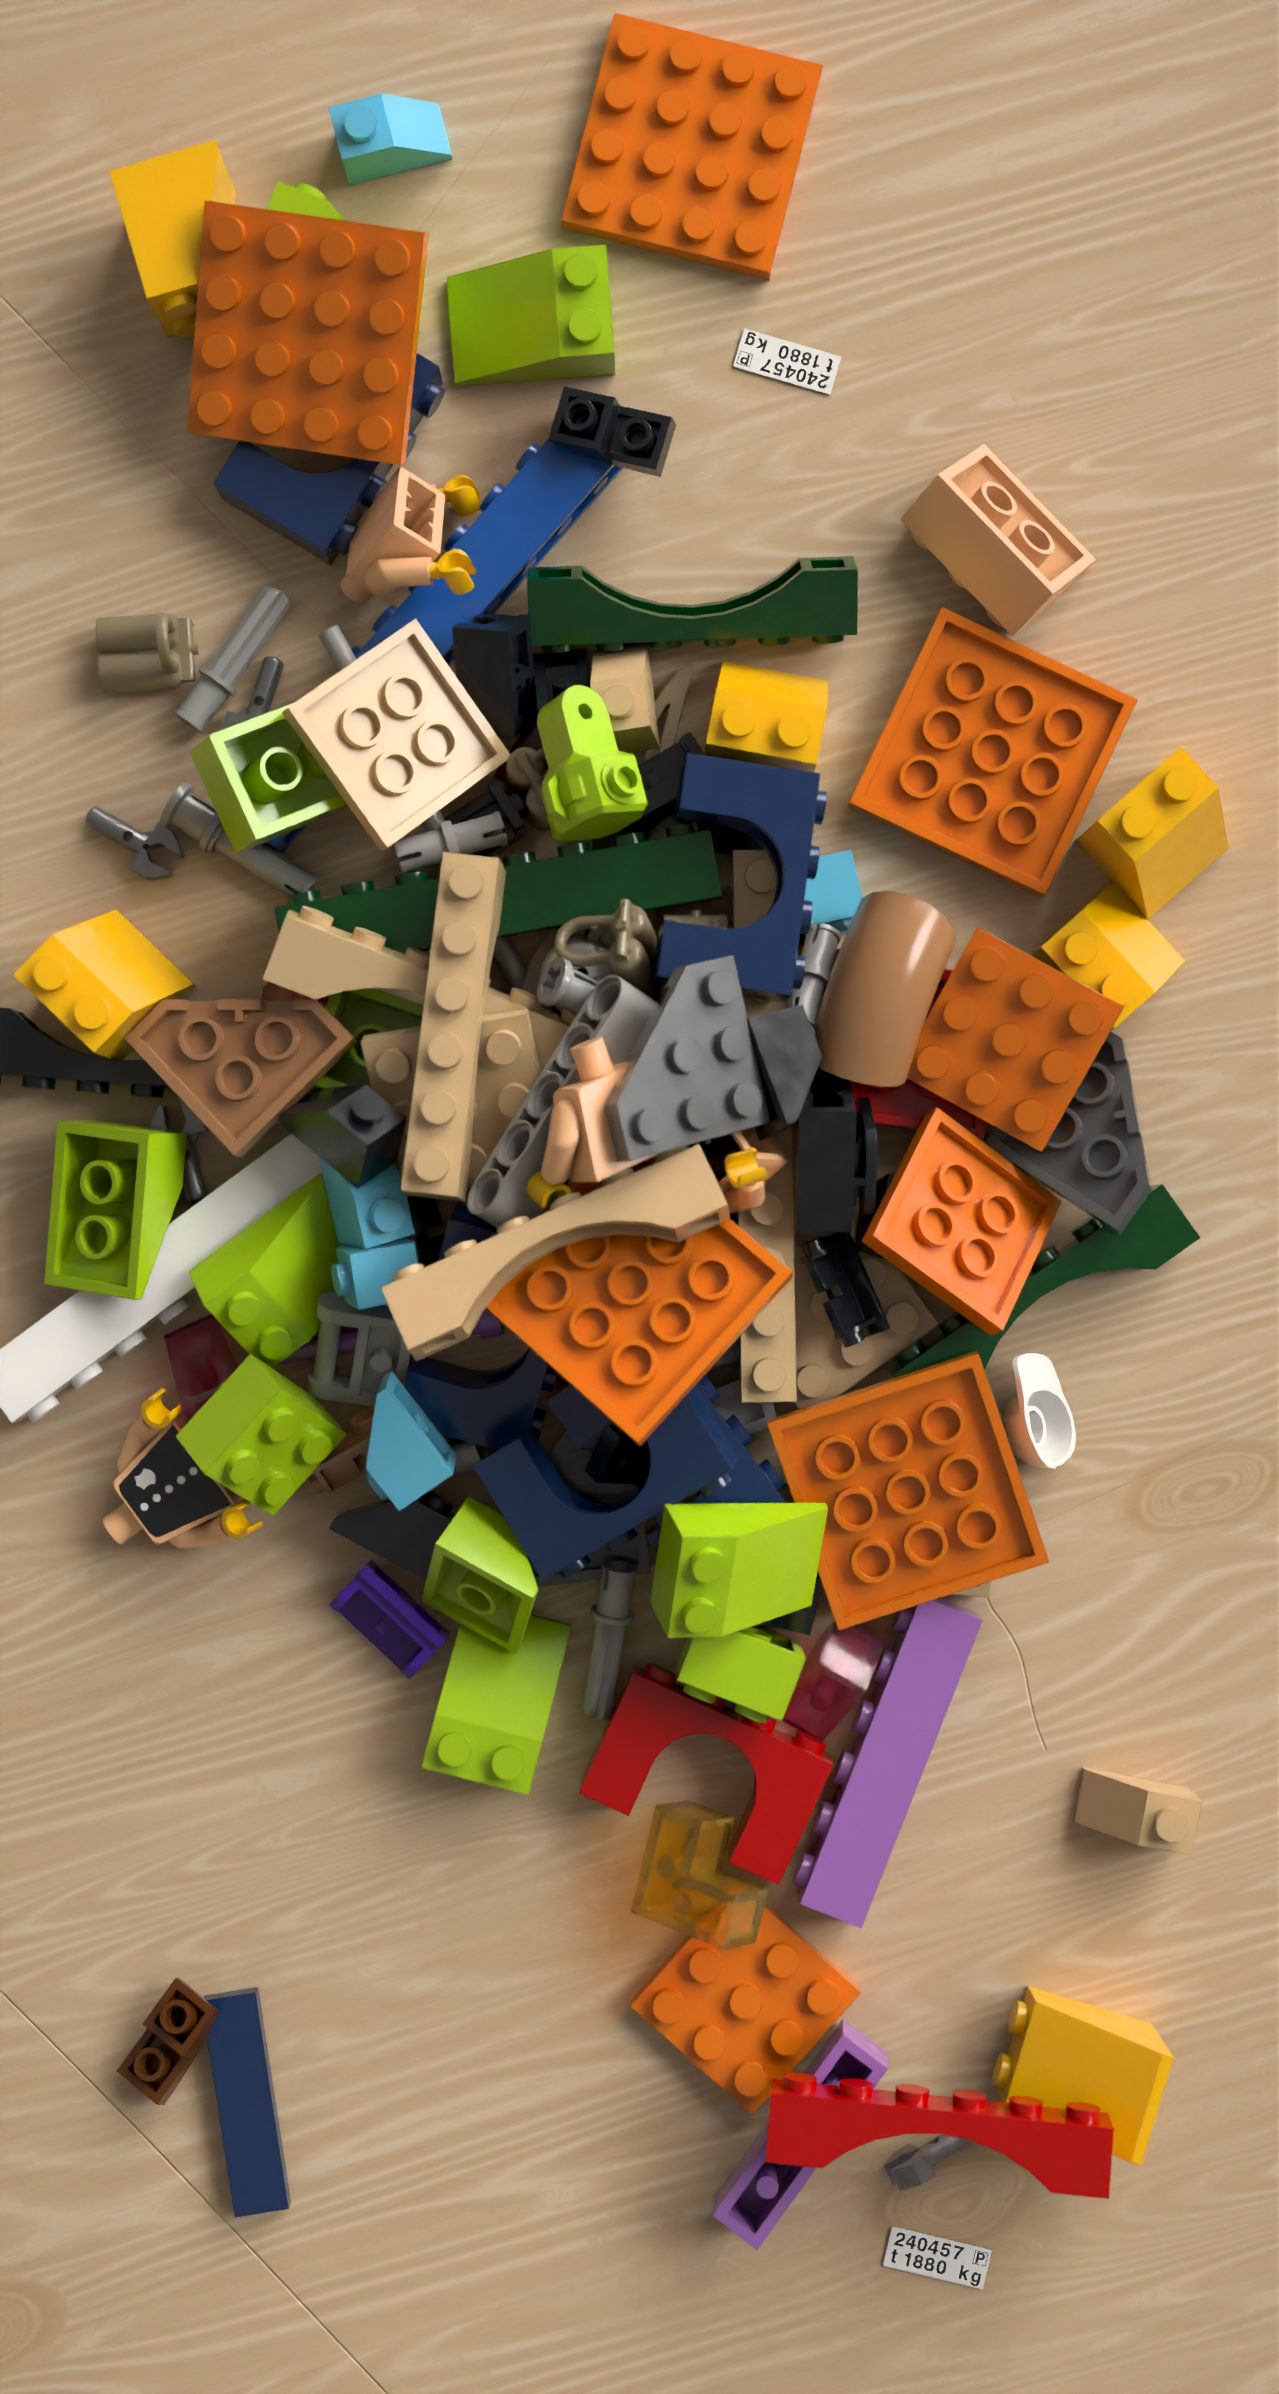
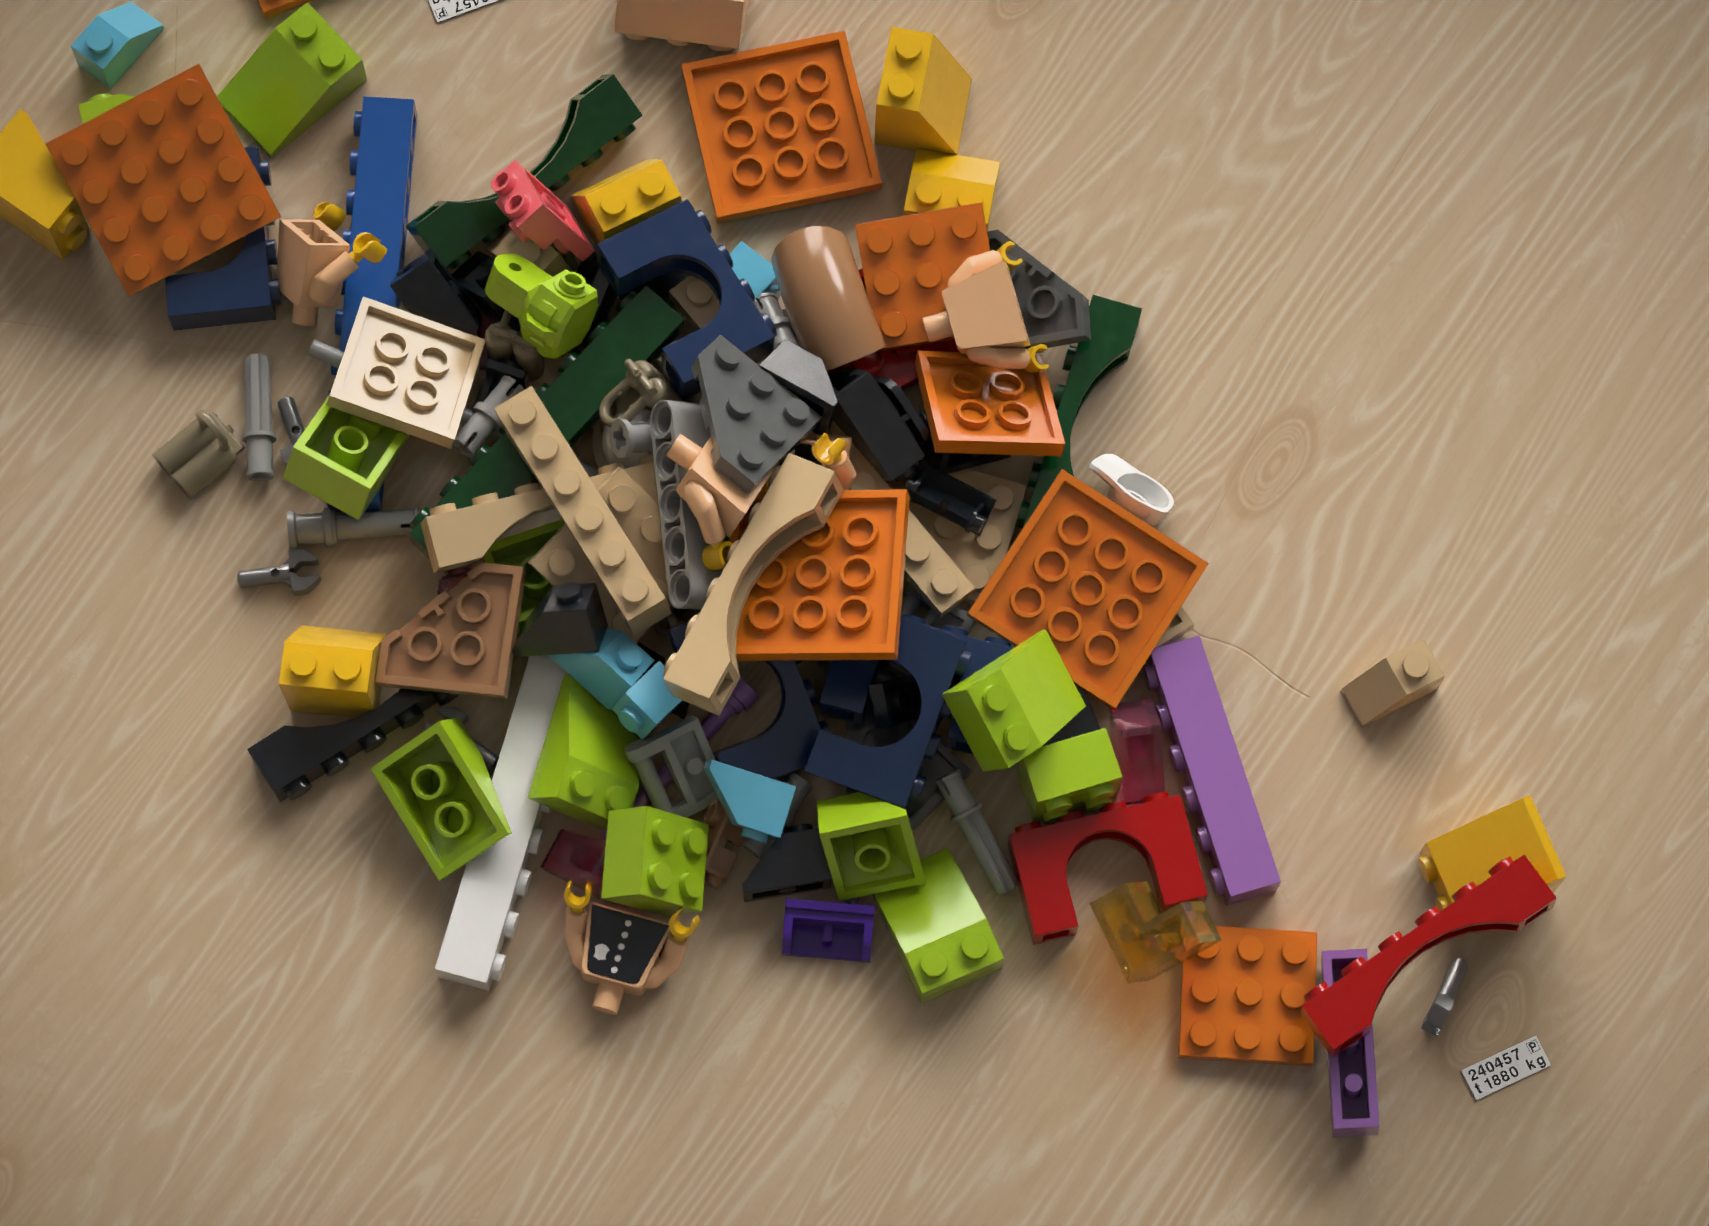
camera: 40 degrees left, 15 degrees down
(612, 433) = (397, 107): black slope -> none
(663, 665) = (538, 212): none -> coral plate
(1032, 1130) = (986, 314): none -> light nougat torso

